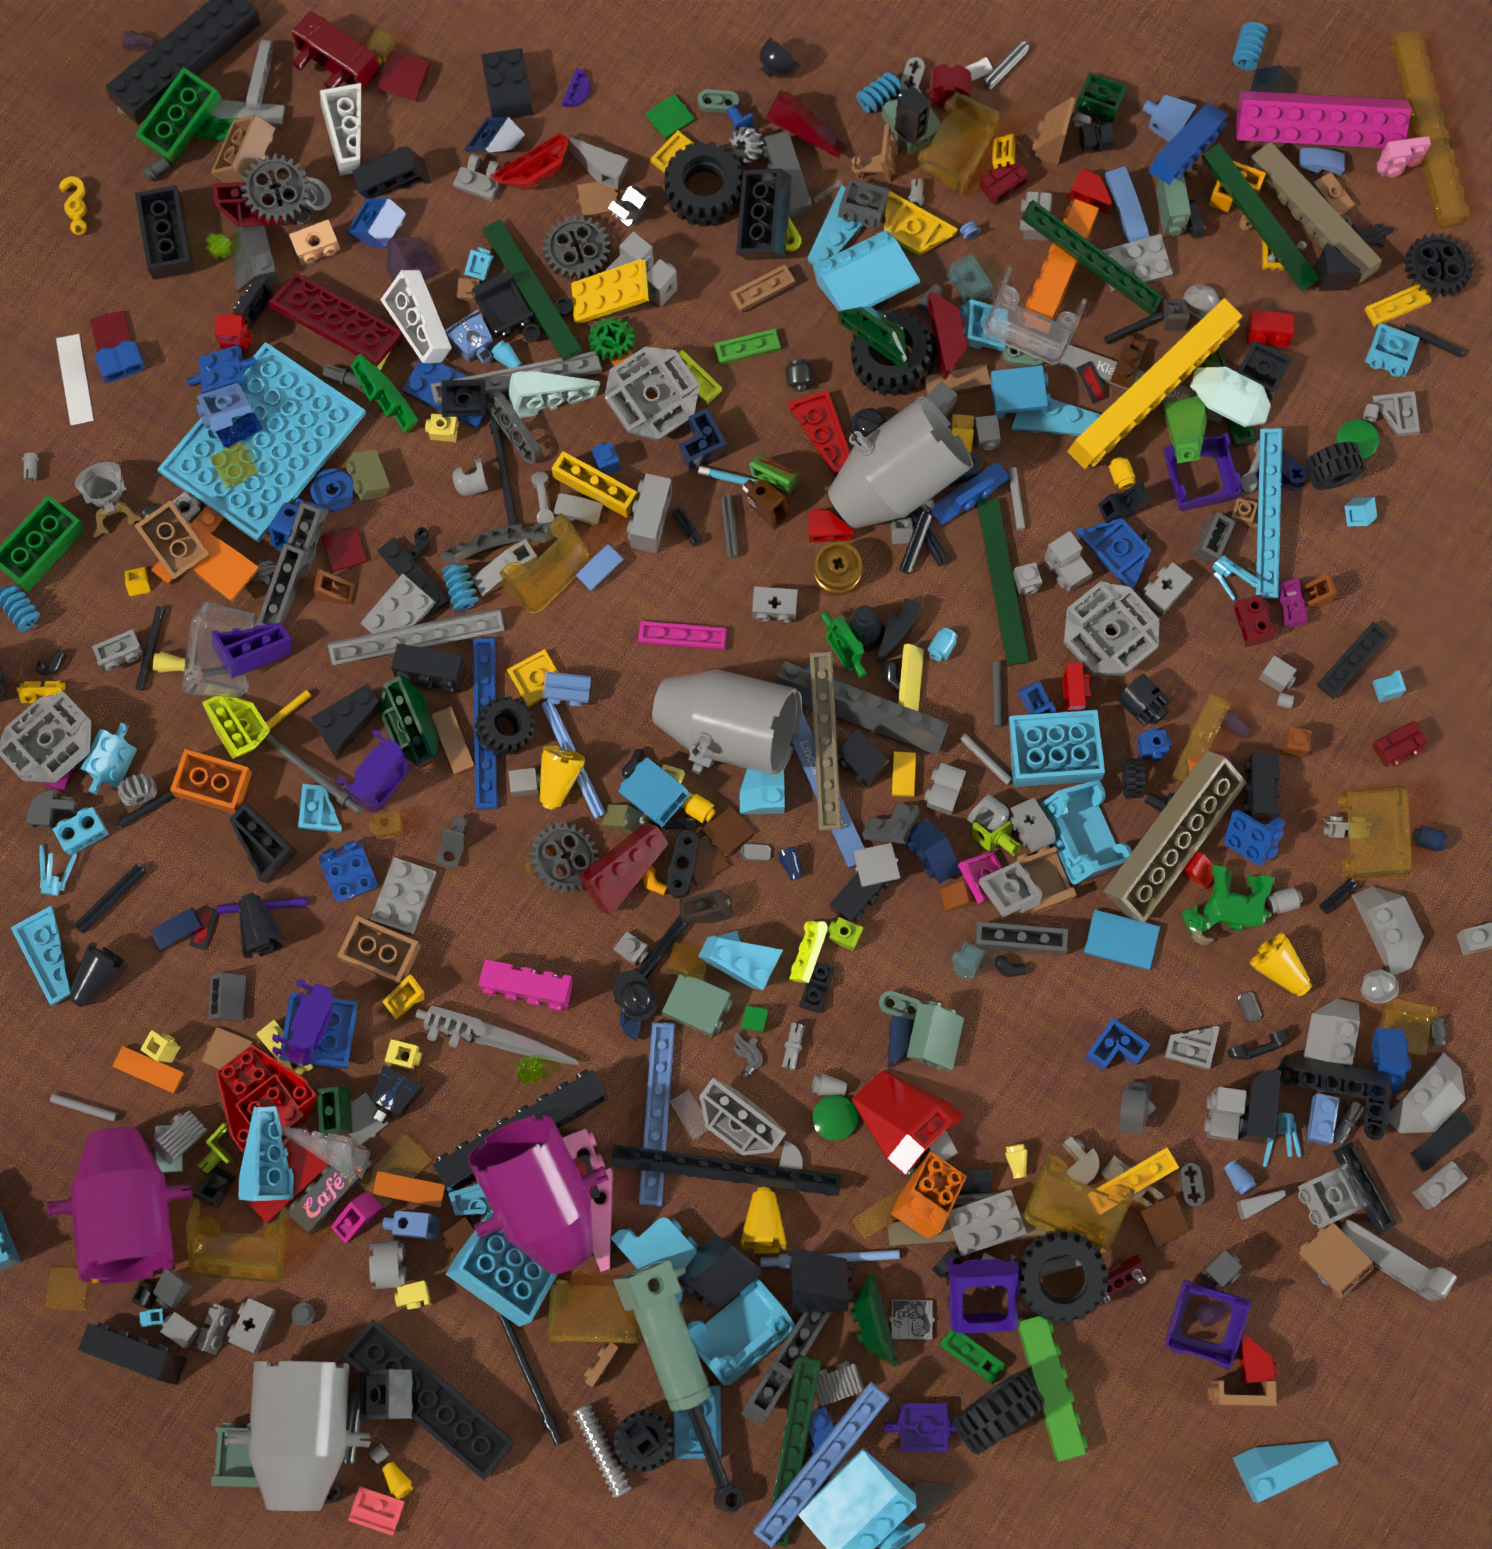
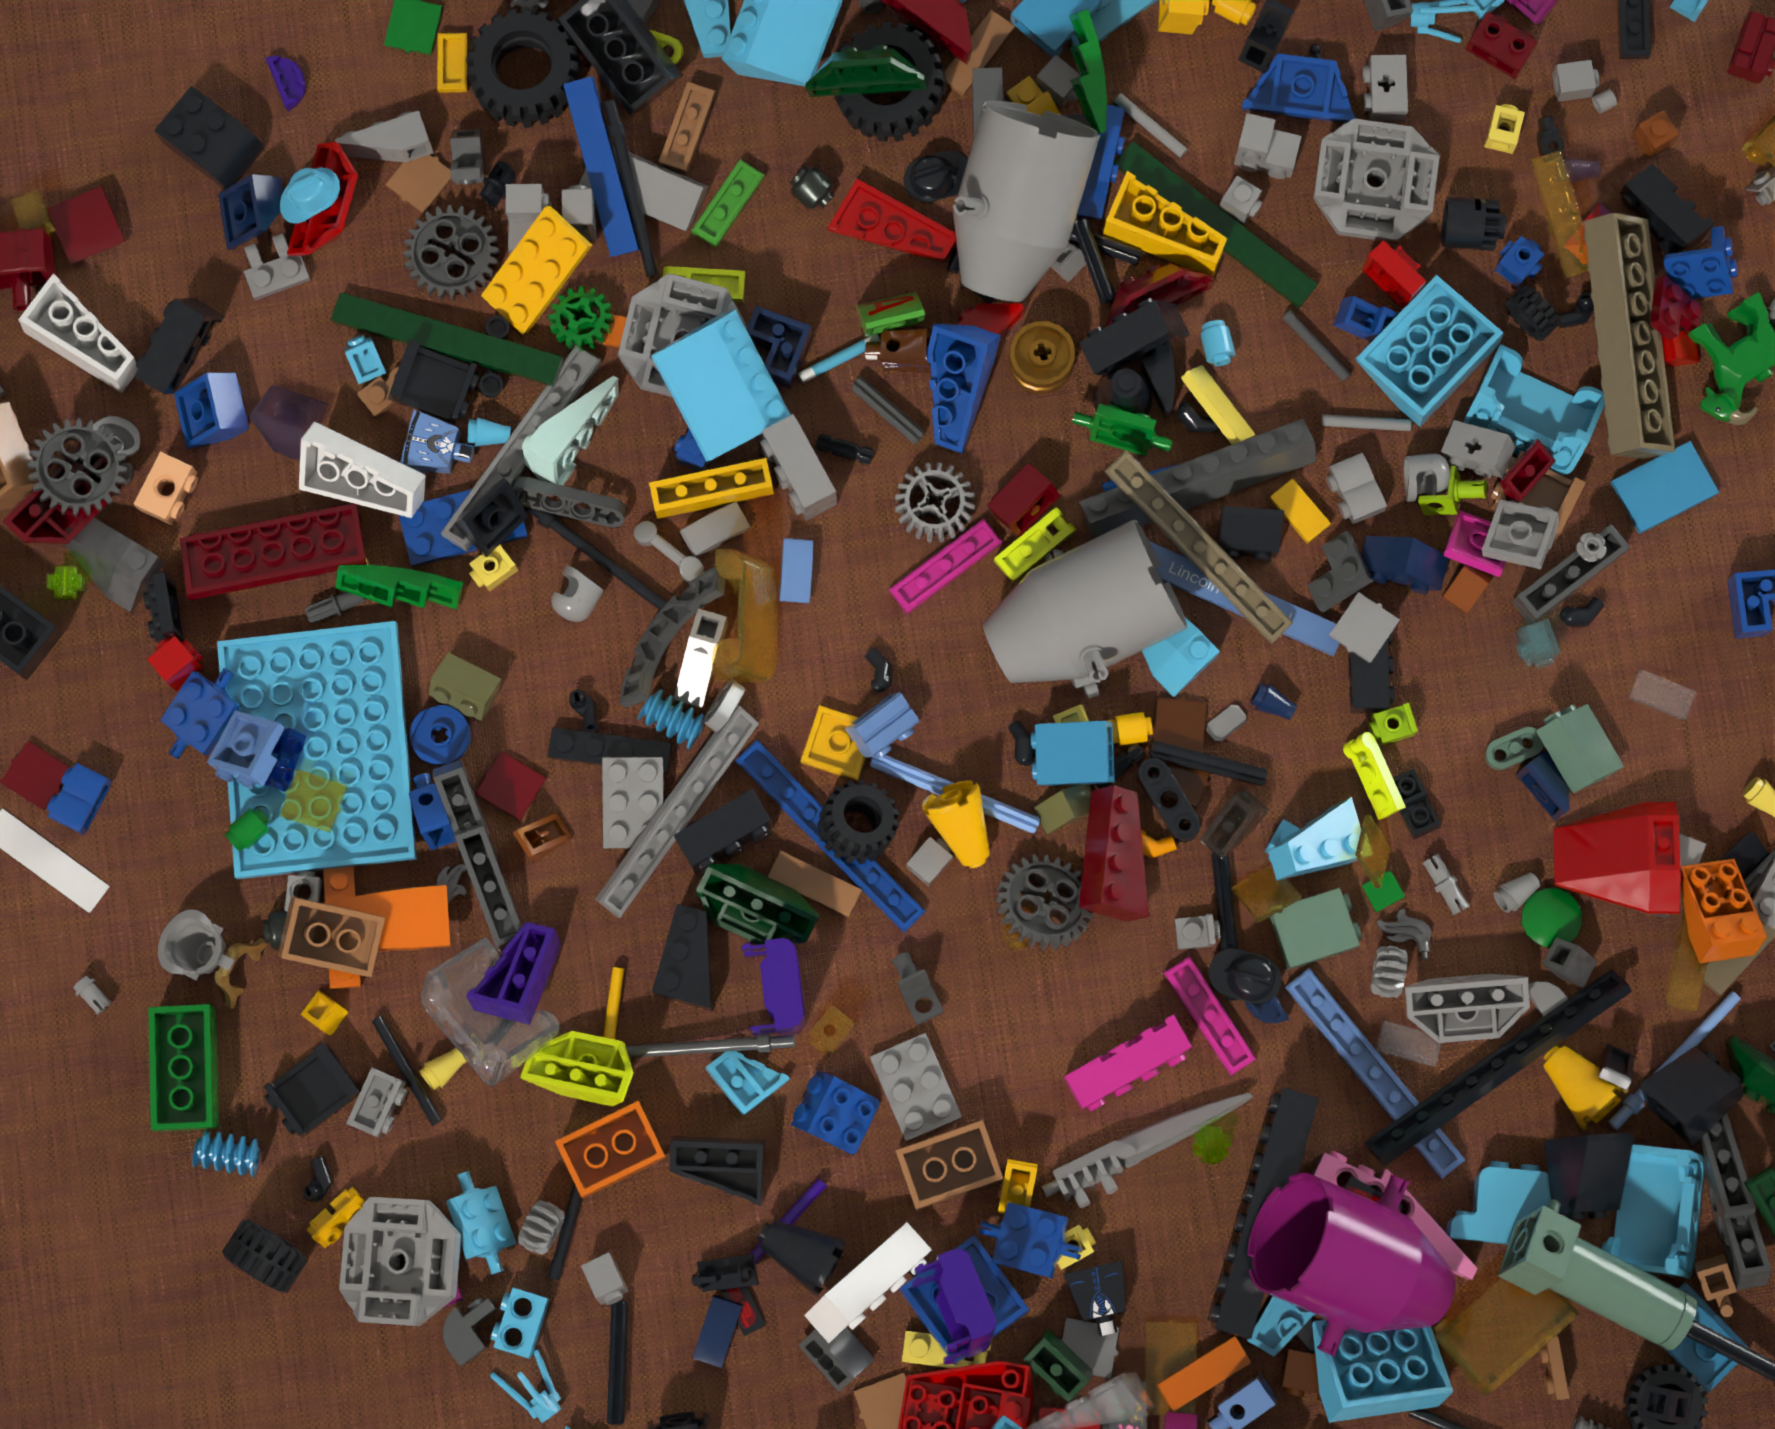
camera: 40 degrees left, 5 degrees up
(91, 615) = (312, 1091): none -> black panel
(144, 847) = (605, 1279): none -> light grey brick
(185, 448) = (248, 829): none -> green brick
(208, 901) = (726, 1273): none -> black hinge
(274, 972) = (868, 1282): none -> white wedge
(382, 1029) = (1030, 1240): none -> blue plate
(493, 603) = (724, 705): none -> light grey beam
(528, 151) = (309, 194): none -> medium azure piece
(596, 660) = (883, 670): none -> black arm
(596, 1001) = (1209, 1016): none -> dark pink tile
(641, 229) = (495, 183): none -> black piece
(646, 431) = (720, 384): none -> medium azure slope
(695, 267) = (601, 166): none -> blue tile
(710, 298) = (663, 192): none -> light grey brick
(714, 1063) = (1389, 971): none -> light grey gear
(715, 598) = (923, 480): none -> light grey gear
(719, 254) = (617, 131): none -> black bar
(723, 864) = (1208, 763): none -> black axle
(735, 1399) = (1716, 1282): none -> medium nougat brick
(743, 664) = (1034, 545): none -> neon yellow plate
(751, 635) = (1023, 500): none -> dark red brick
(765, 597) = (1018, 436): light grey brick -> none
(766, 989) = (1372, 851): none -> clear yellow piece
(785, 536) = (960, 369): none -> blue wedge
(791, 1229) = (1616, 1066): none -> black tile
(820, 1149) = (1569, 962): none -> flat silver brick
(896, 596) = (1132, 336): none -> black wedge
(931, 588) = (1162, 283): none -> dark red wedge
(968, 556) = (1162, 228): none -> yellow wedge
(1000, 444) = (1091, 84): none -> green slope
(1013, 1051) = (1662, 694): none -> clear tile
(1039, 935) = (1584, 550): none -> light grey plate
(1047, 859) = (1526, 472): none -> dark red slope
(1215, 658) = (1503, 140): none -> light yellow brick
(1215, 840) = (1673, 309): none -> dark red plate
(1236, 692) = (1548, 134): none -> black piece

